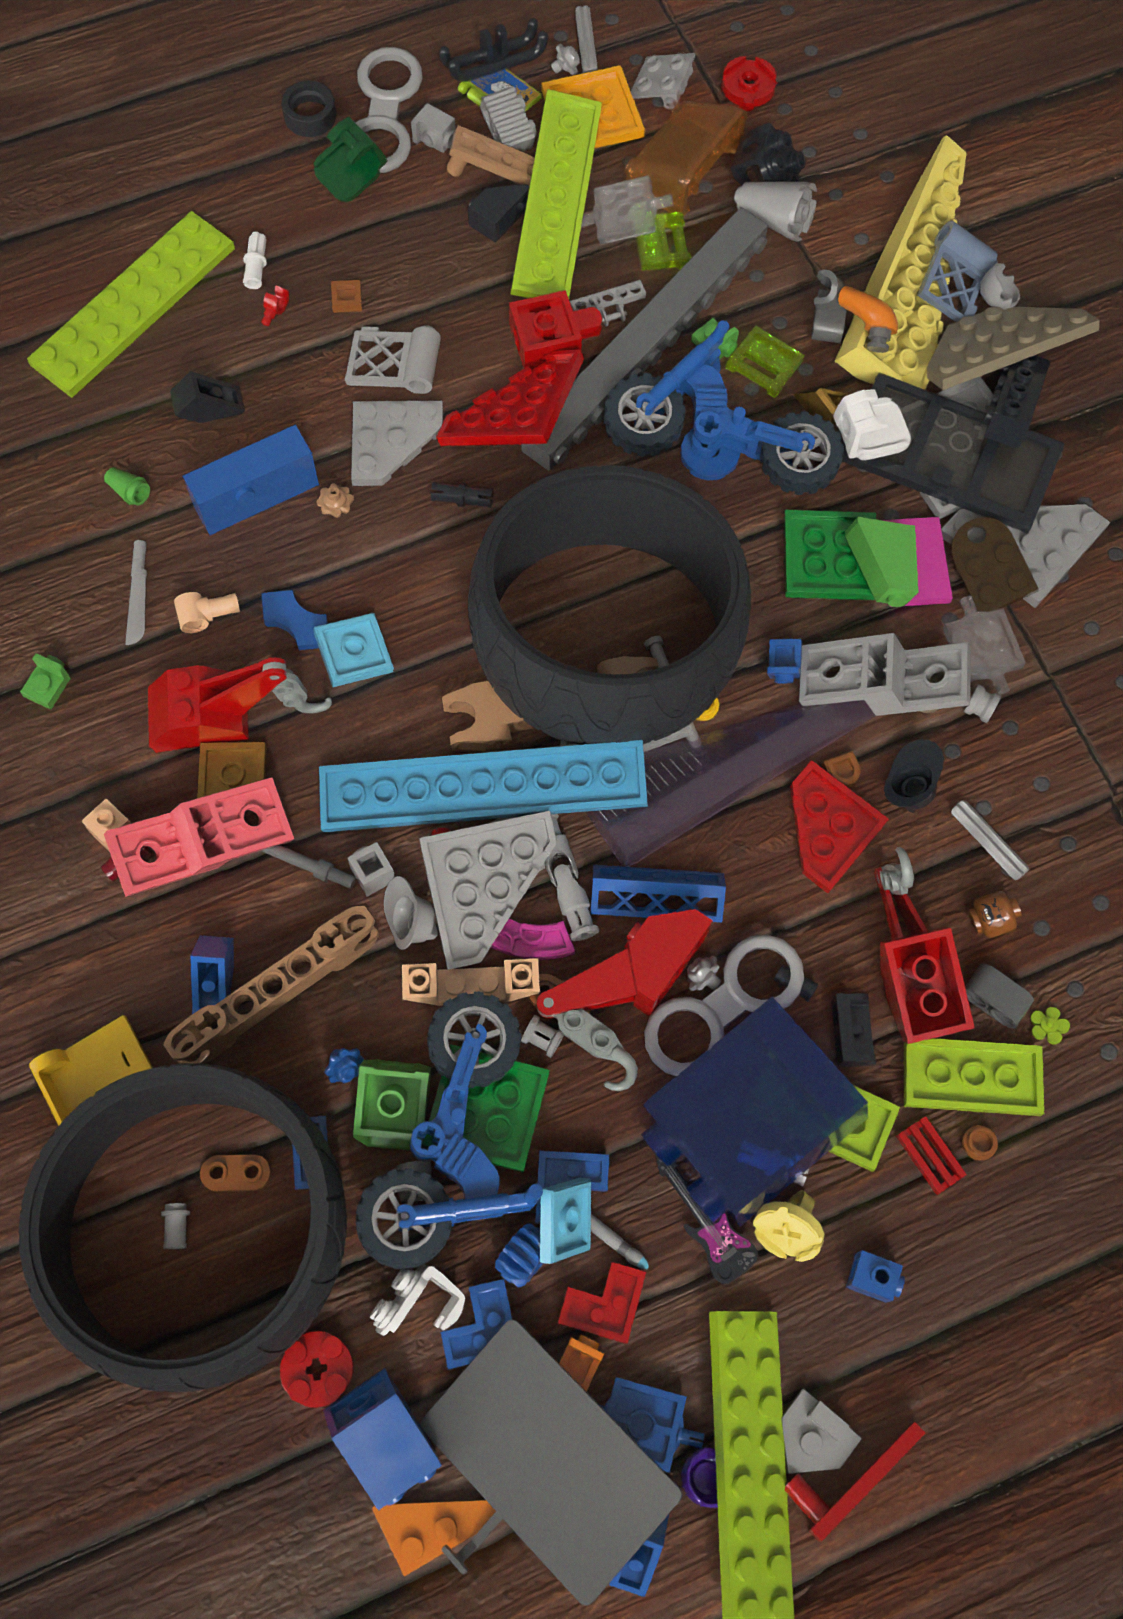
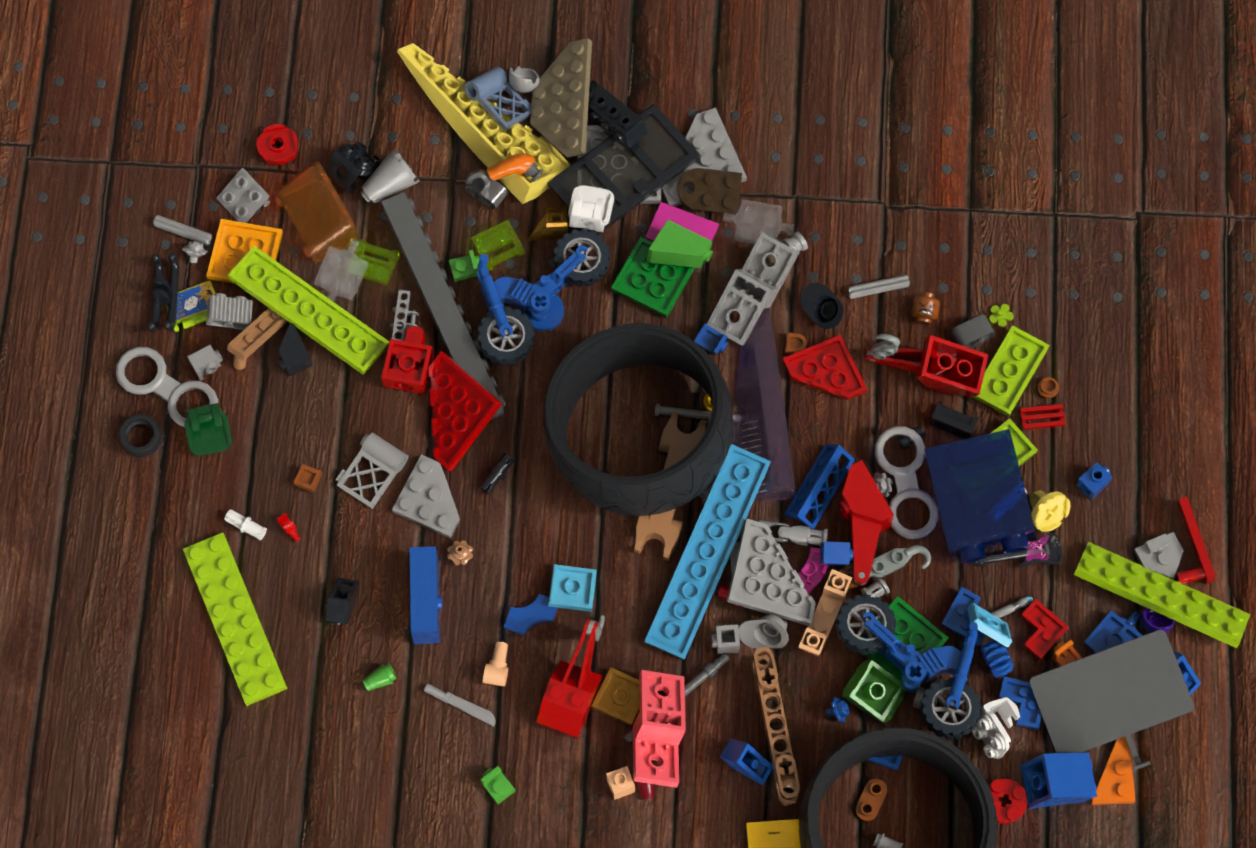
camera: 60 degrees left, 0 degrees up
(563, 953) = (835, 553): none -> blue brick

